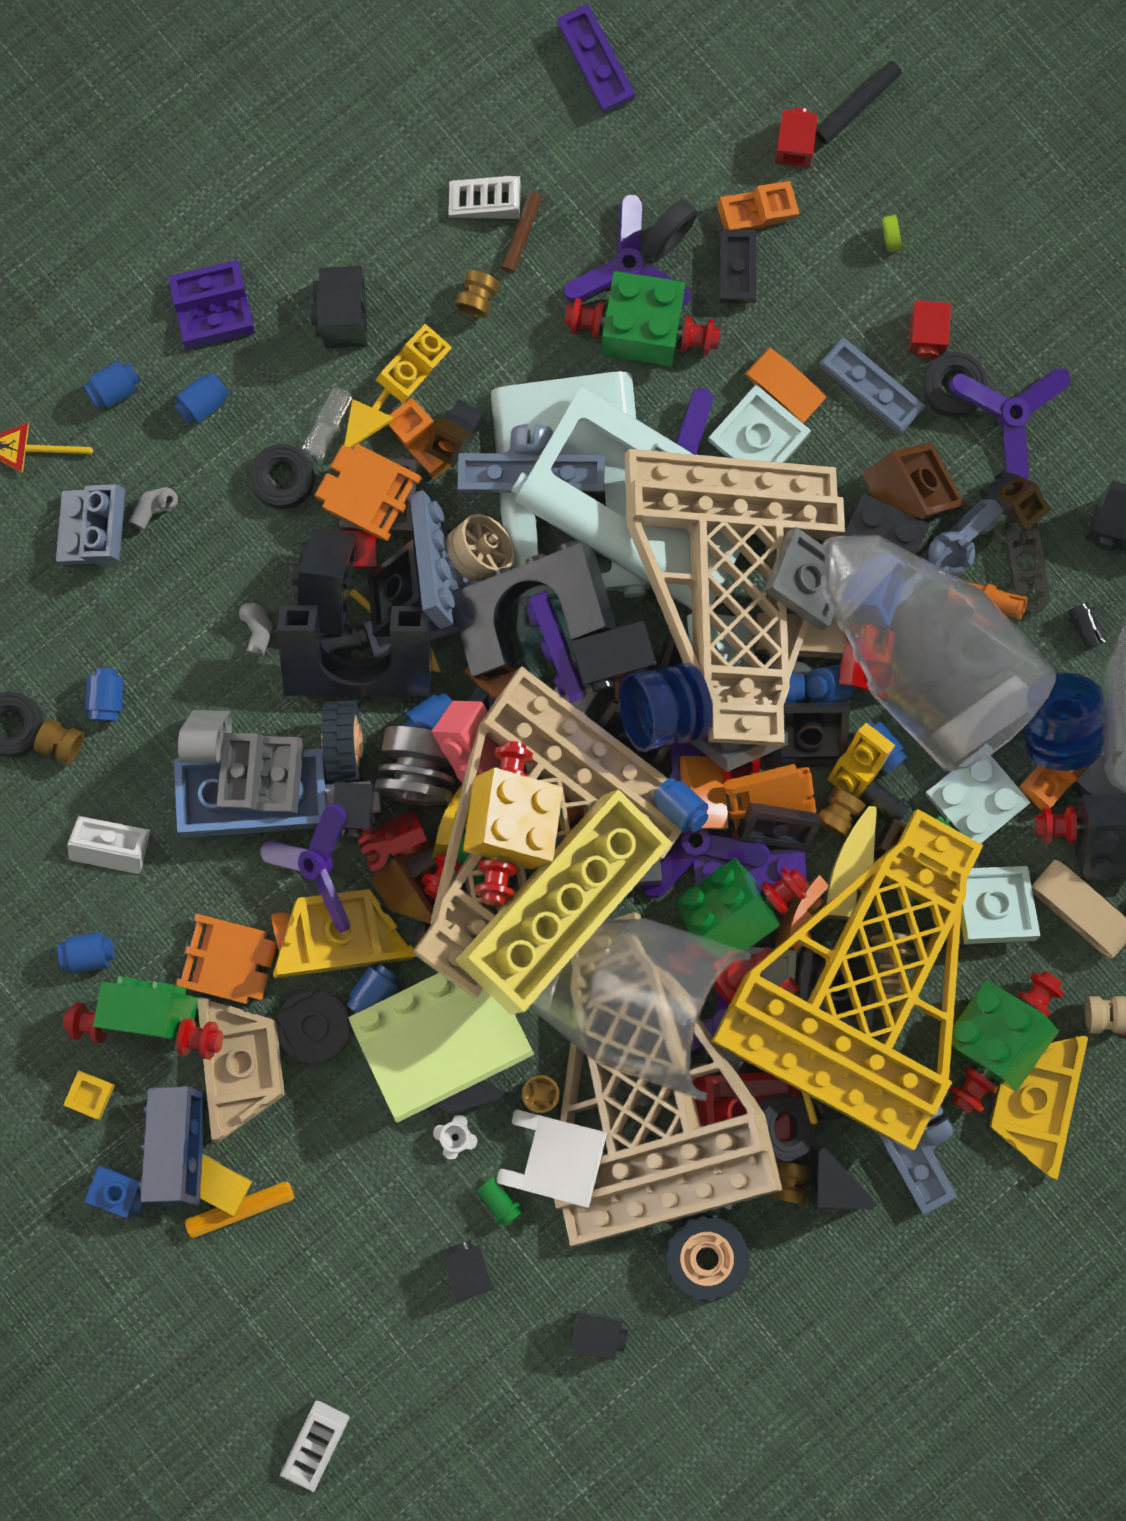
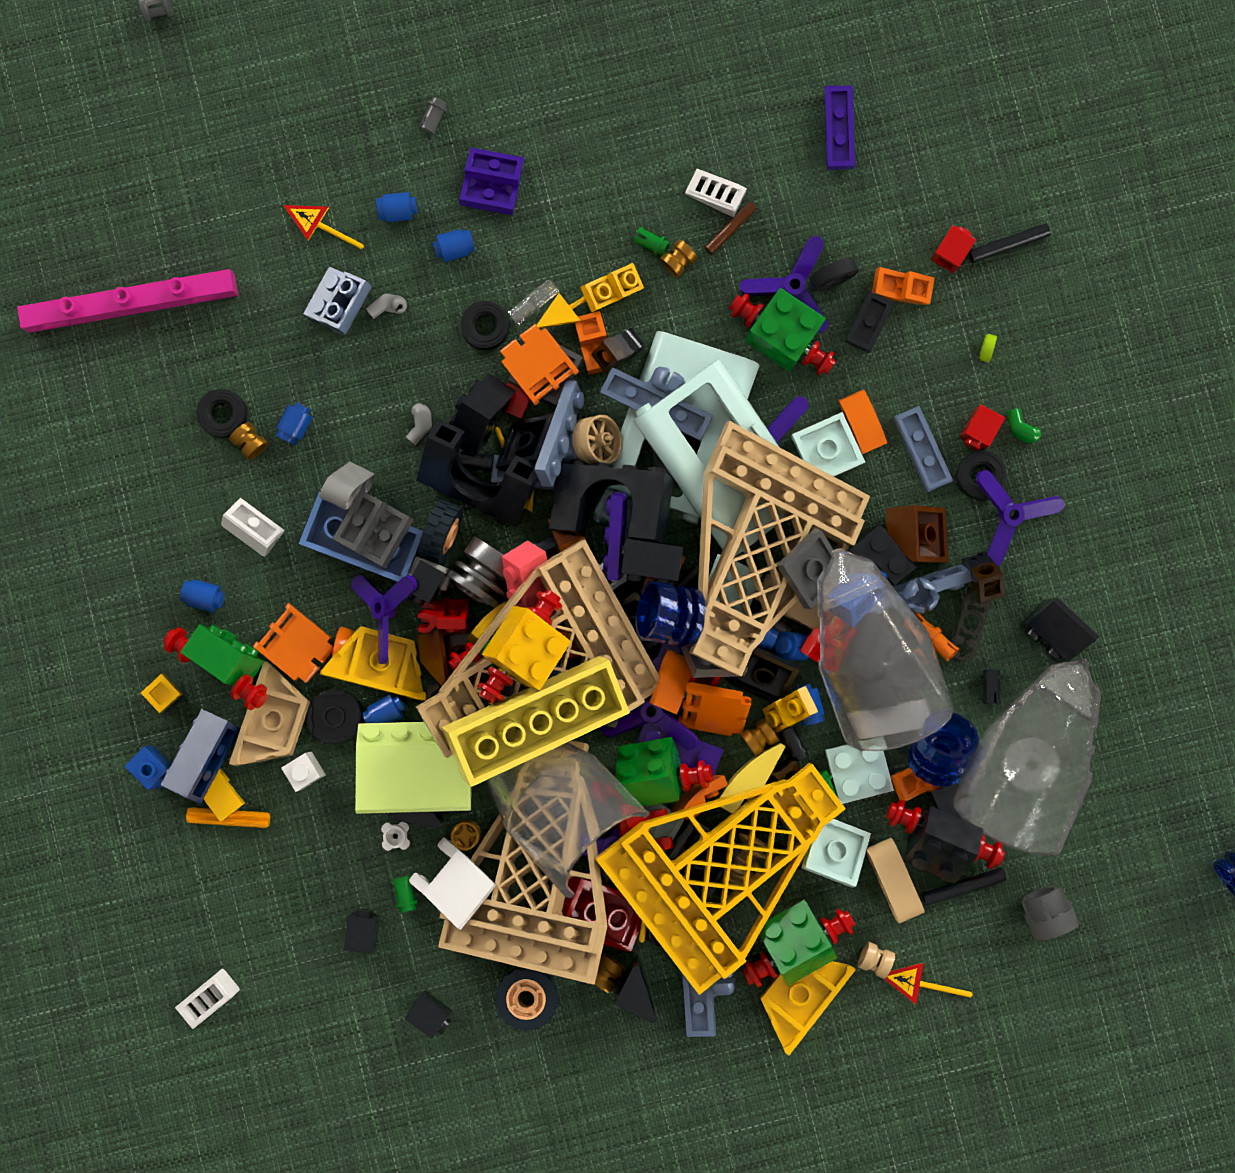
camera: 20 degrees right, 5 degrees up
(106, 258) = (433, 115): none -> dark grey pin
(307, 1108) = (303, 771): none -> white brick
(340, 307) = (579, 224): black brick -> none
(428, 712) = (508, 539): blue brick -> none
(437, 289) = (652, 242): none -> green pin
(681, 805) = (650, 686): blue brick -> none
(778, 826) = (712, 728): black plate -> none
(803, 1133) = (631, 944): black tyre -> none
(977, 310) = (1020, 429): none -> green arm

